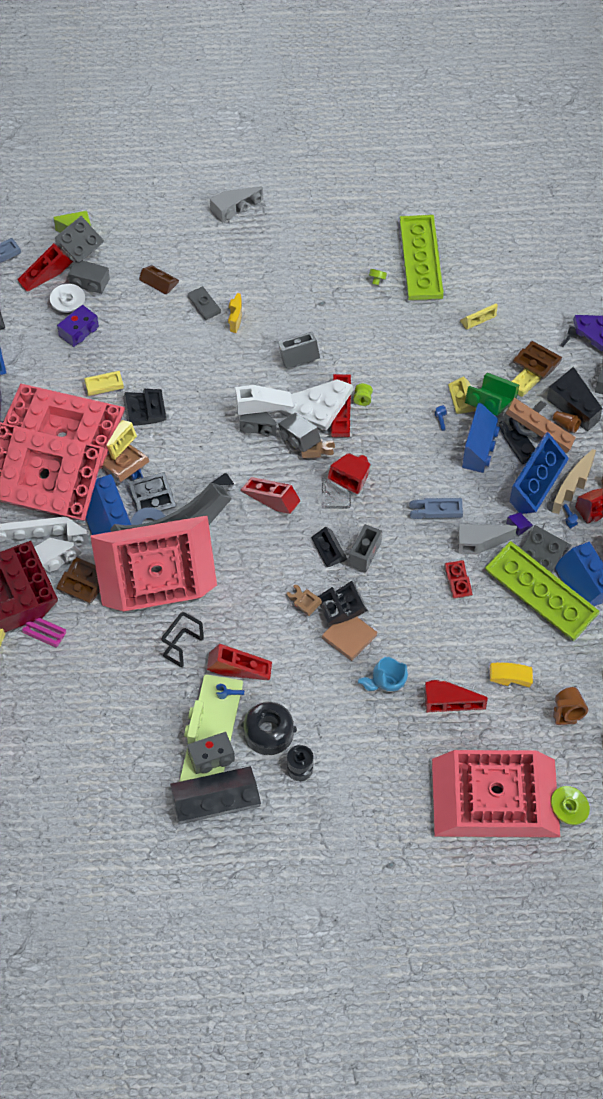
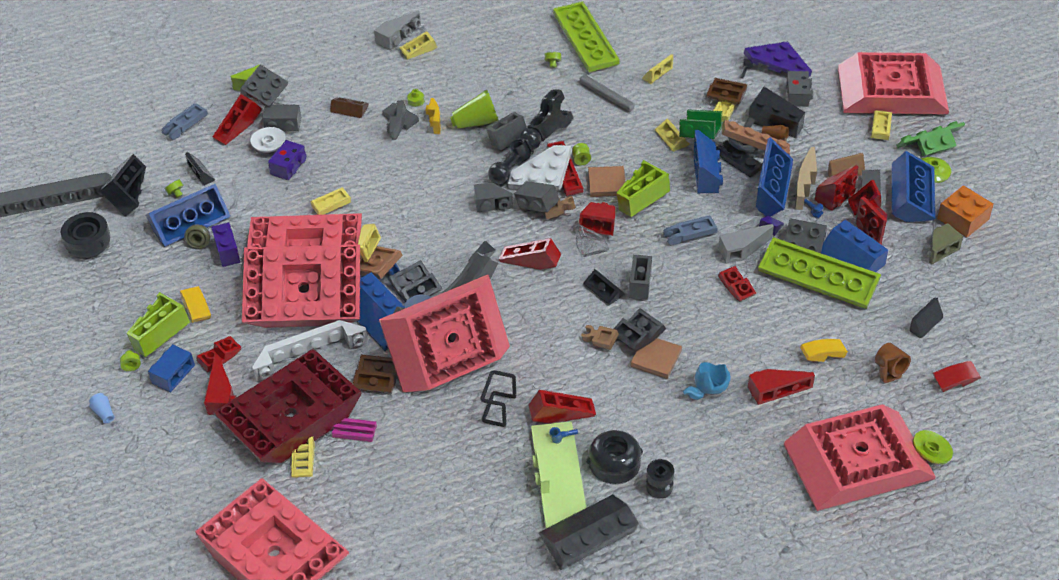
camera: 15 degrees left, 10 degrees down
(56, 552) = (343, 353): white slope -> none
(144, 407) = (379, 211): black slope -> none
(195, 312) = (397, 121): none -> dark grey slope
(211, 753) = (569, 492): dark grey brick -> none
(226, 286) = (415, 98): none -> lime tile
(251, 230) = (423, 43): none -> light yellow slope
(261, 399) = (490, 175): white slope -> none
(276, 320) = (475, 112): none -> lime cone
(330, 357) = (540, 128): none -> black piece
(377, 431) = (605, 180): none -> nougat tile
(406, 451) = (642, 189): none -> lime wedge
(416, 329) = (607, 93): none -> light grey axle
(439, 413) = (658, 152): blue hand -> none

